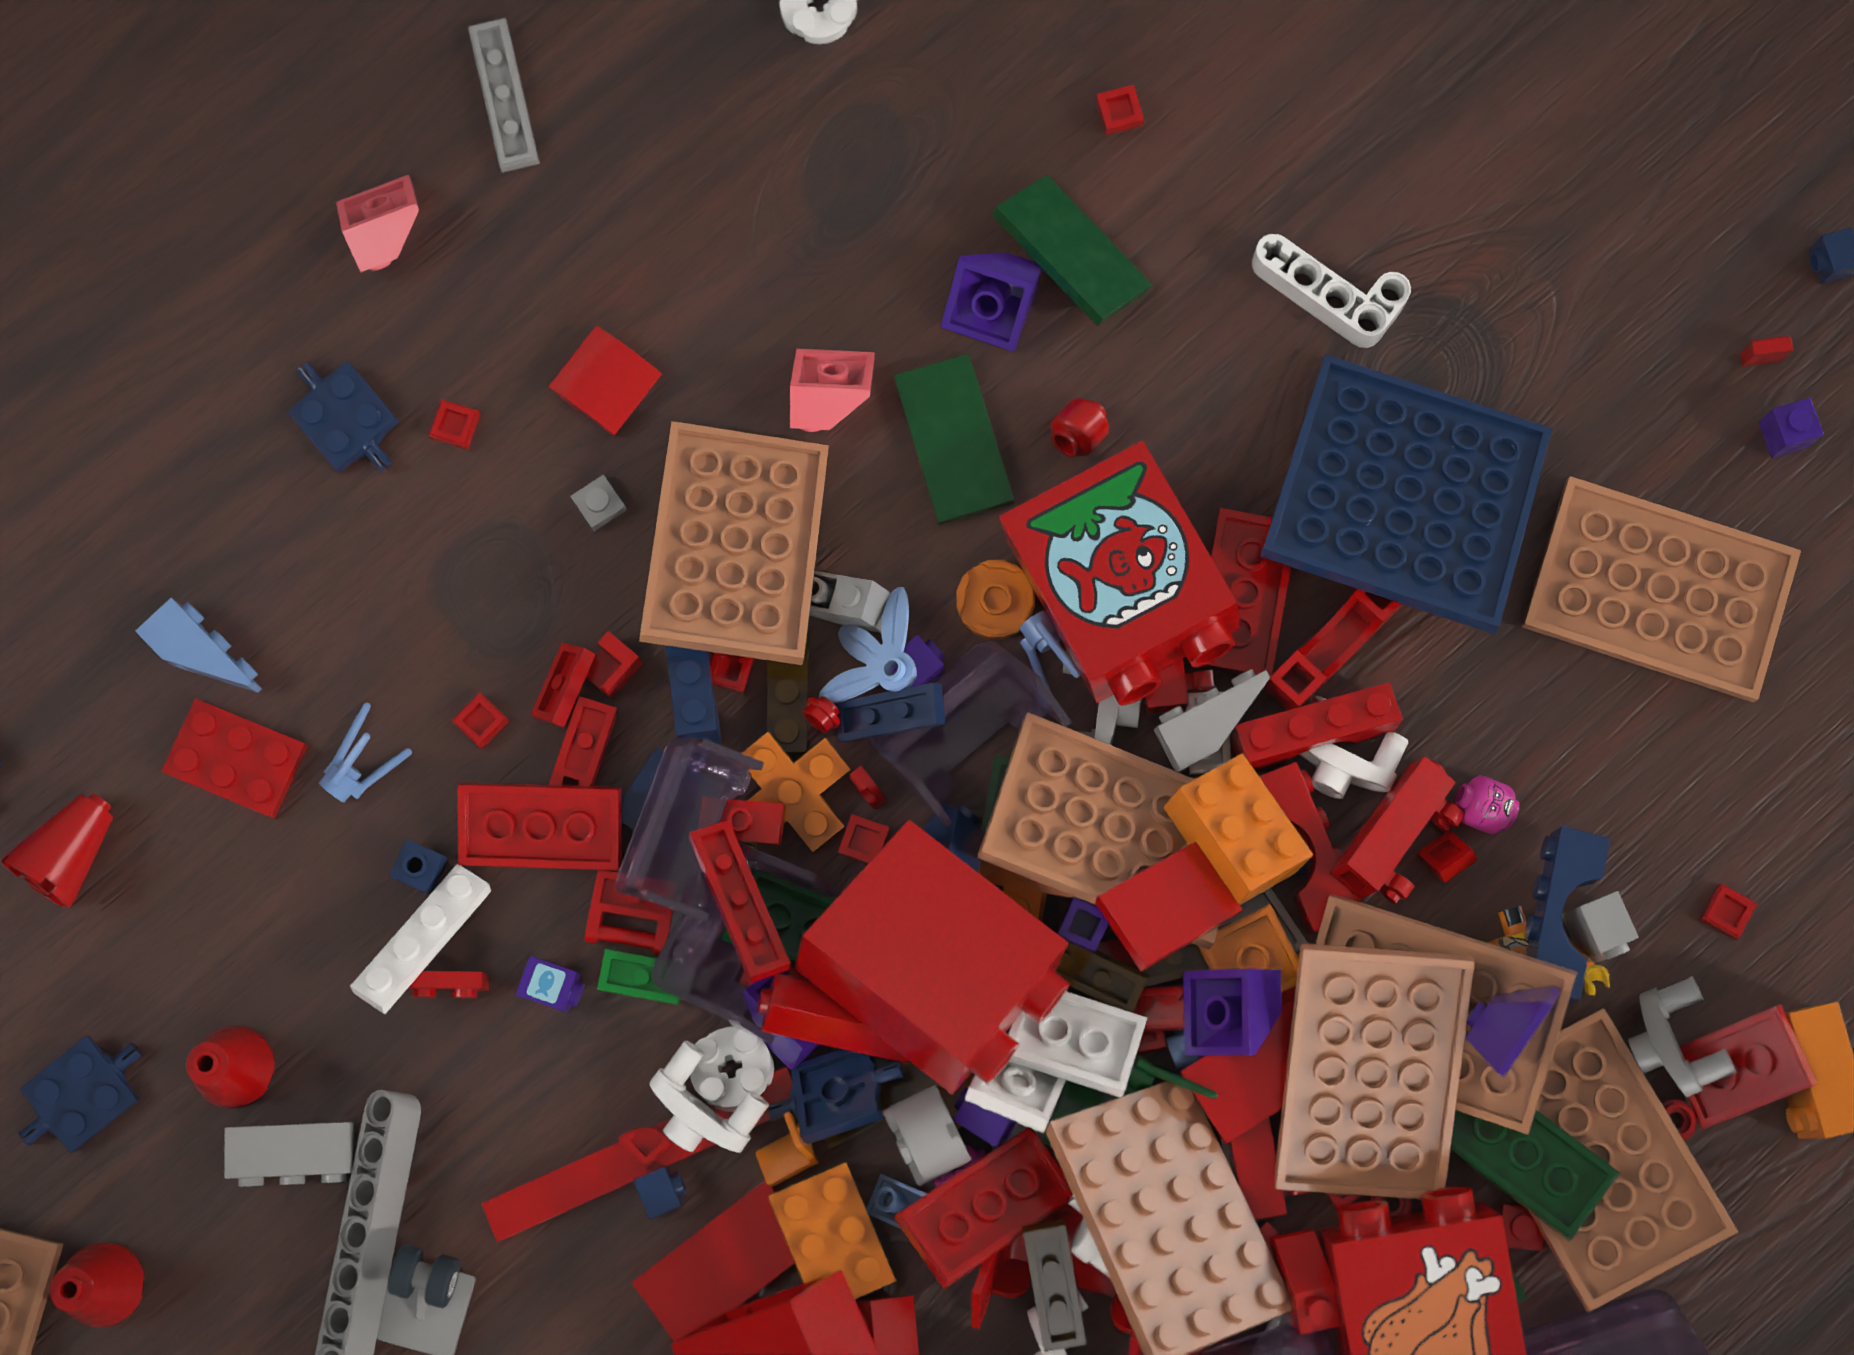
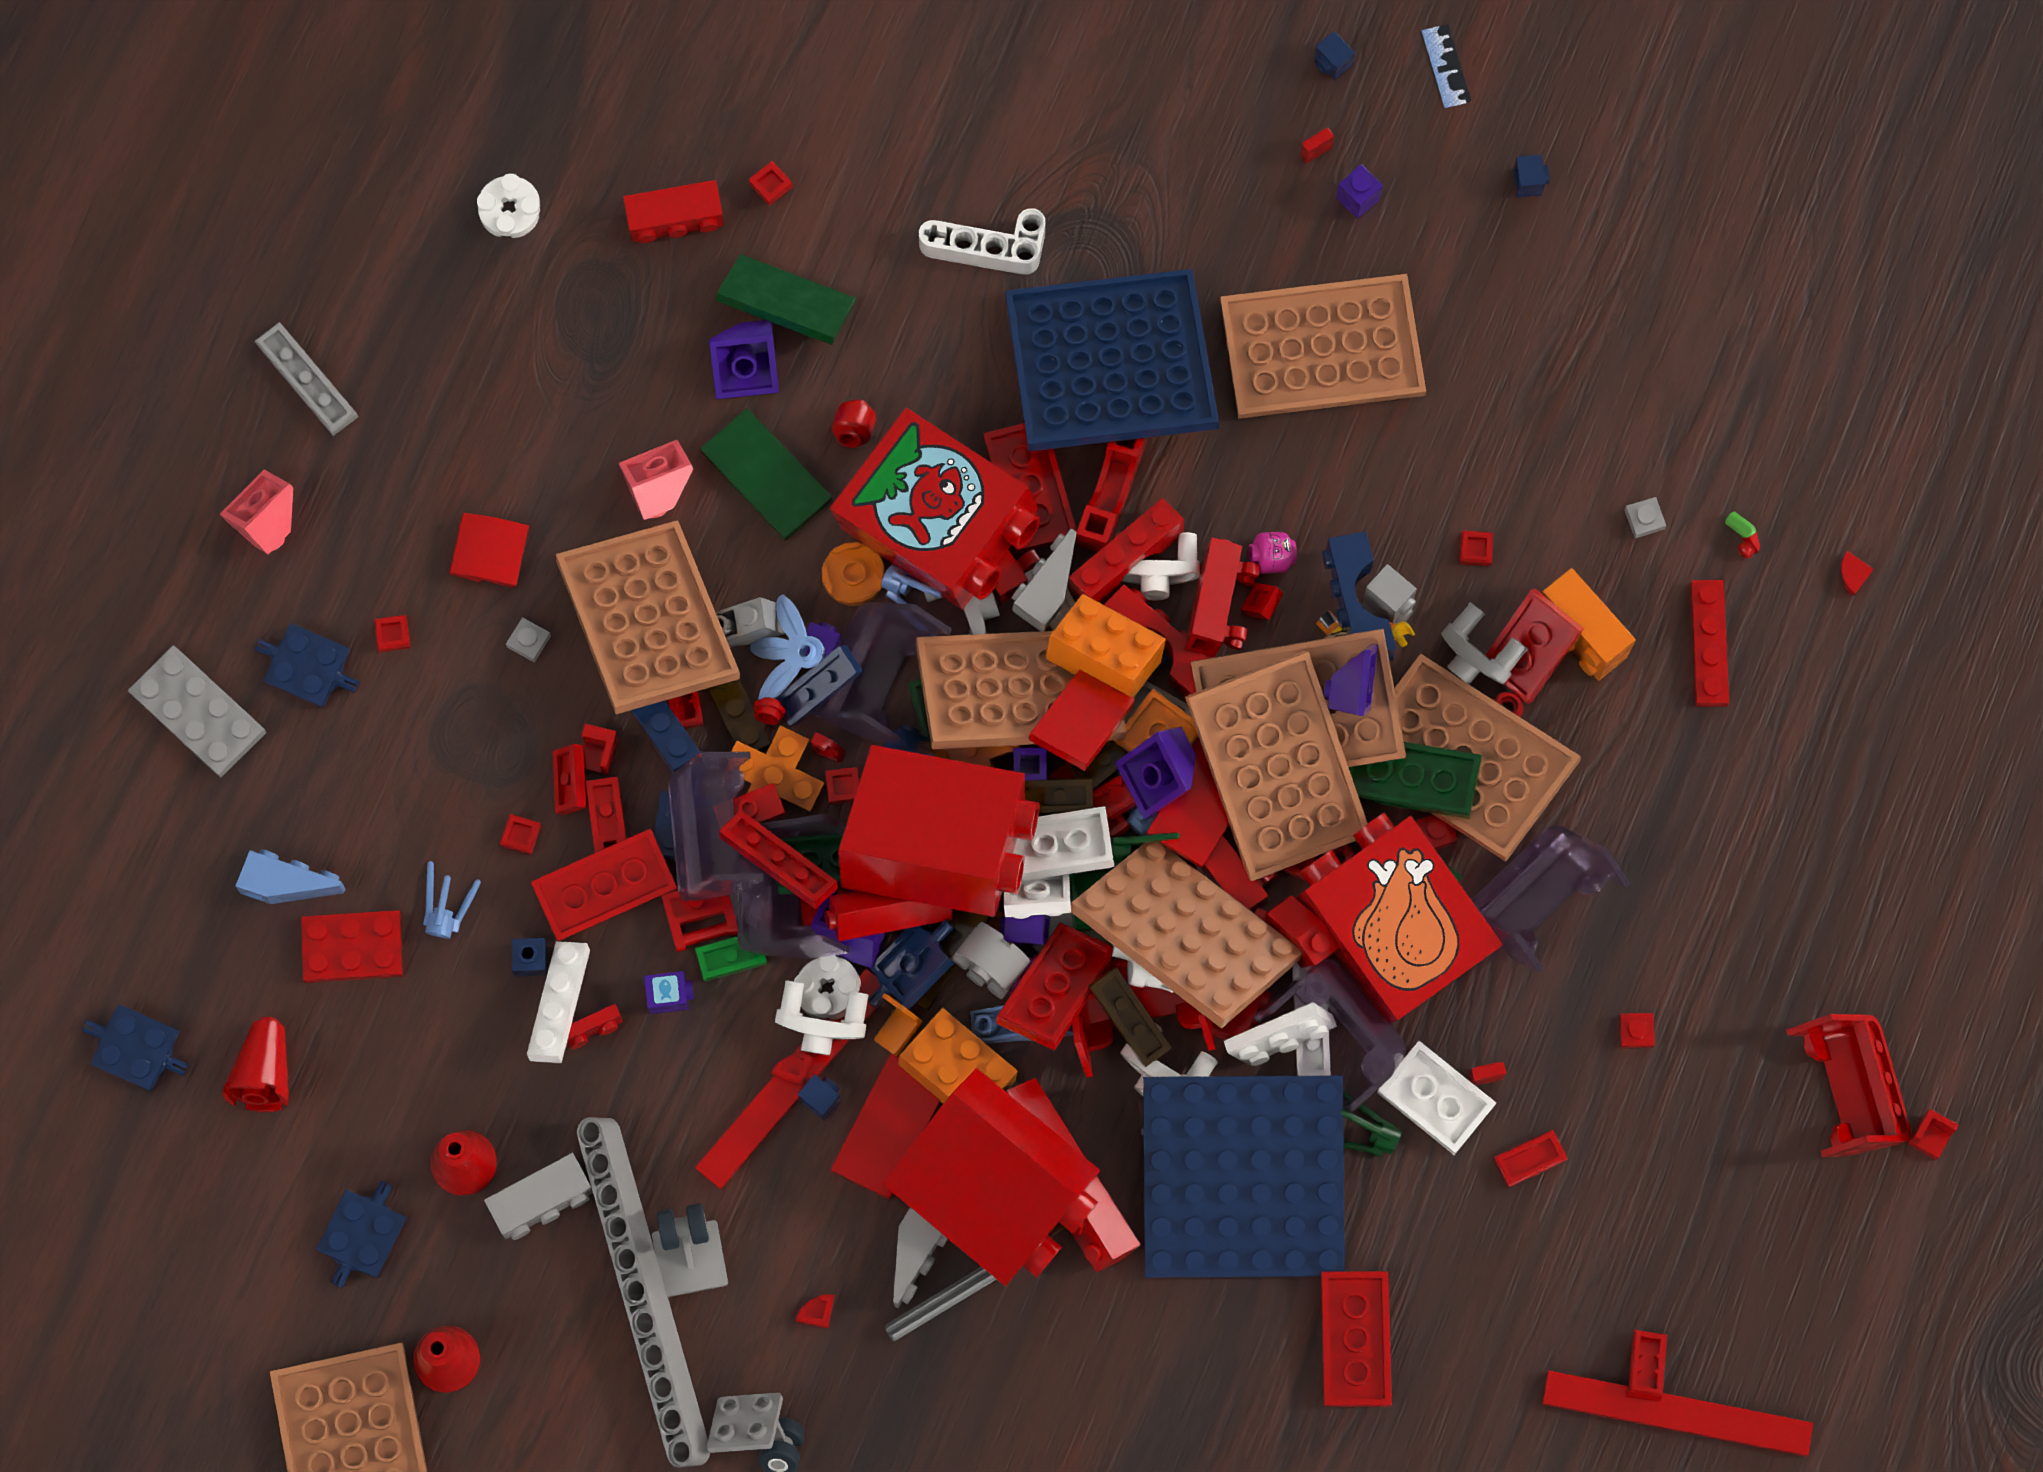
camera: 30 degrees left, 5 degrees down
(201, 411) = (197, 711): none -> light grey plate
(995, 92) = (673, 211): none -> red brick

